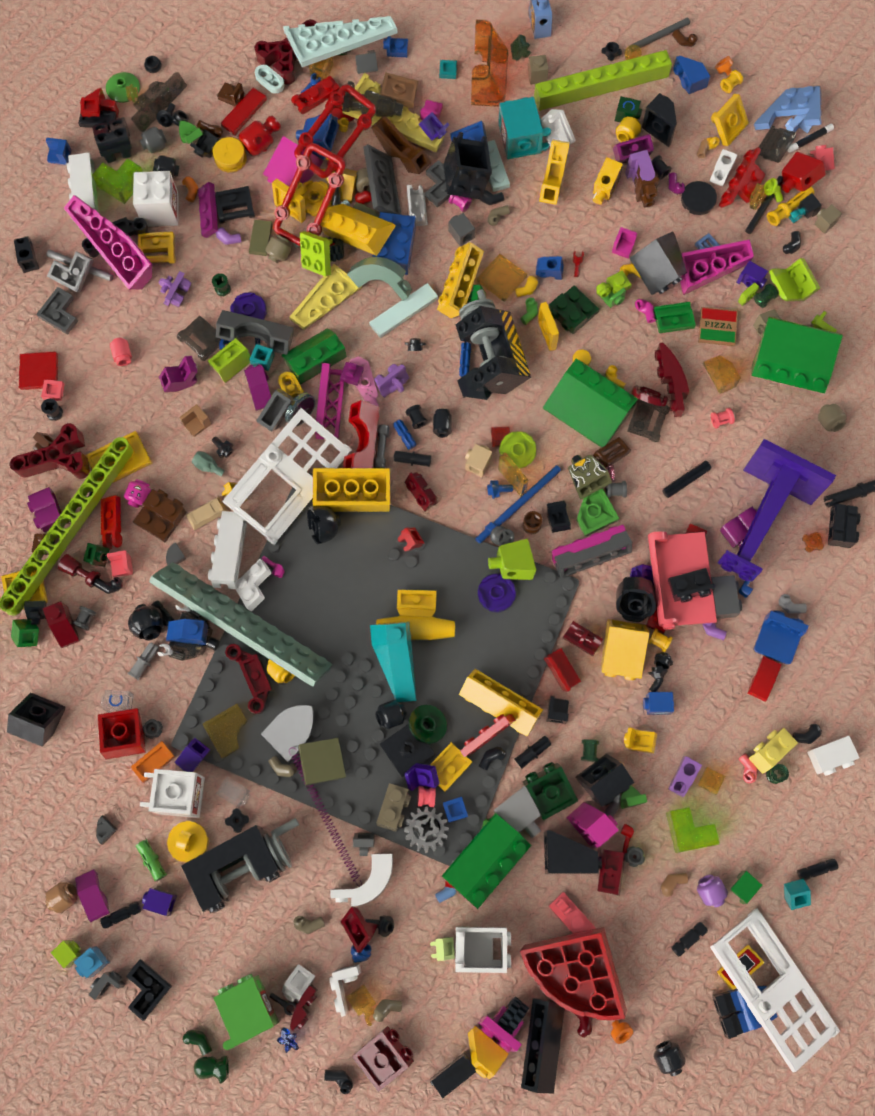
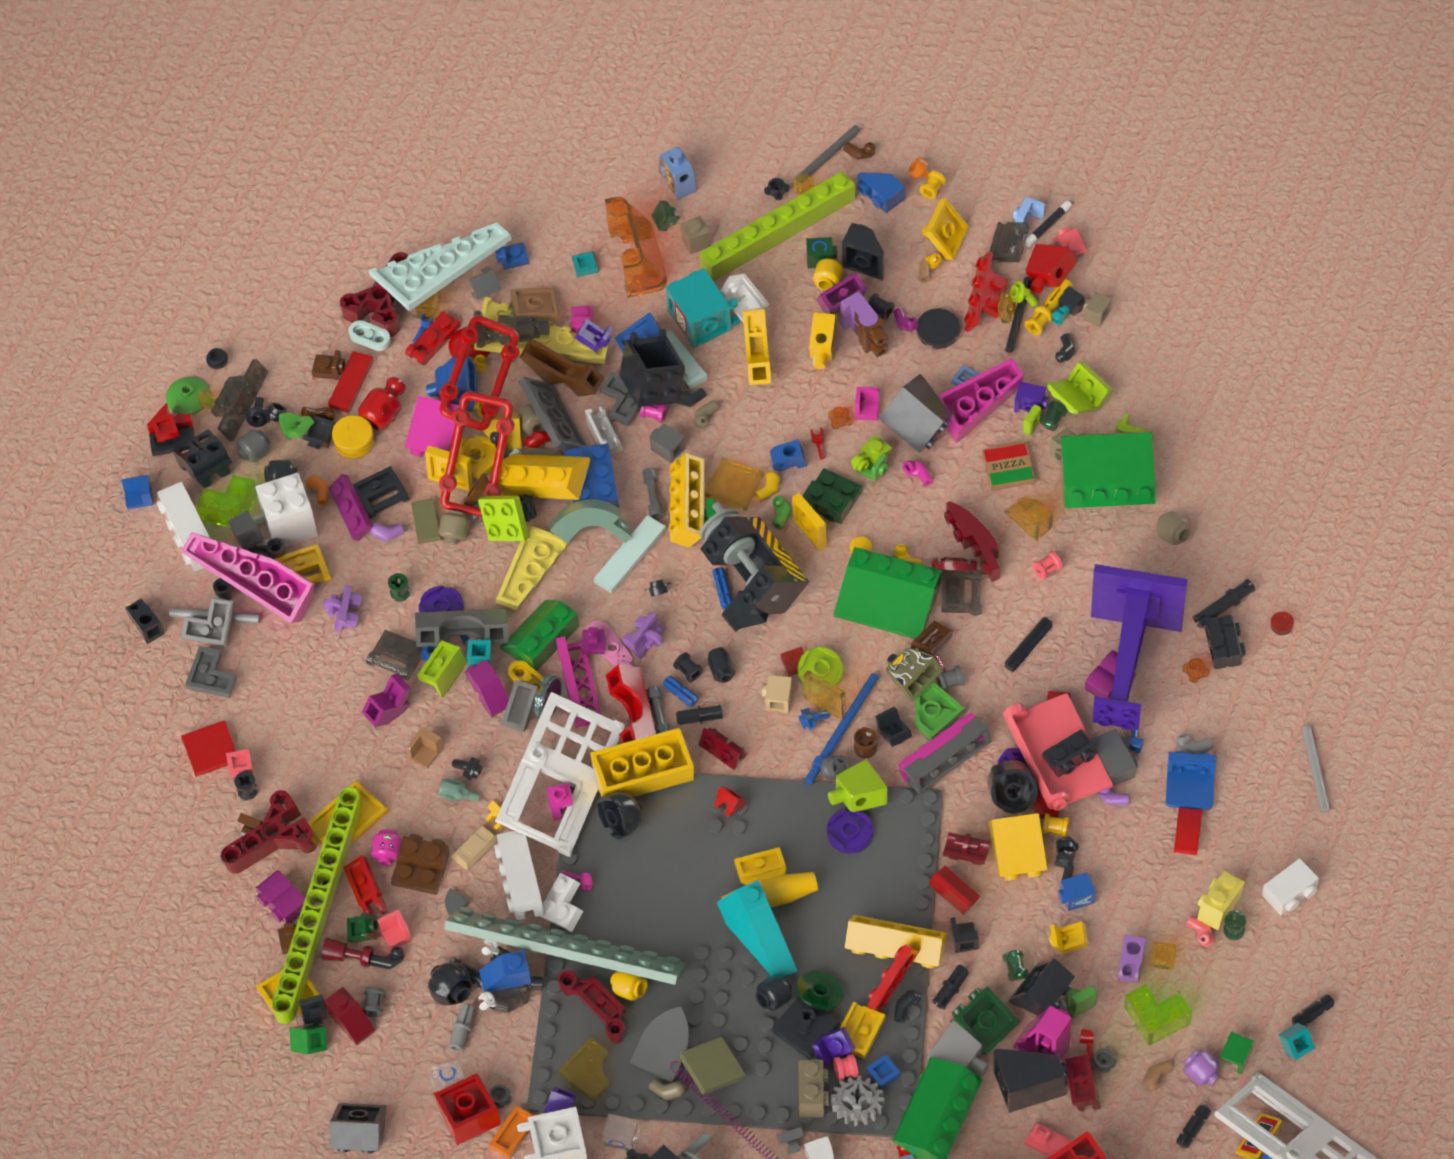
camera: 15 degrees left, 15 degrees down
(120, 205) = (245, 530): none -> dark grey panel
(121, 351) = (305, 697): coral brick -> none
(280, 496) = (559, 799): none -> dark pink bracket
(303, 225) = (476, 490): none -> reddish brown tile
(439, 254) = (655, 507): none -> dark grey bar
(602, 244) = (838, 412): none -> clear orange plate
(629, 269) = (884, 431): yellow arm -> none
(674, 317) = (954, 470): green plate -> none
(723, 167) = (955, 286): white leg -> none
(794, 102) = (1015, 189): medium blue wing -> none
(810, 736) = (1259, 876): black arm -> none

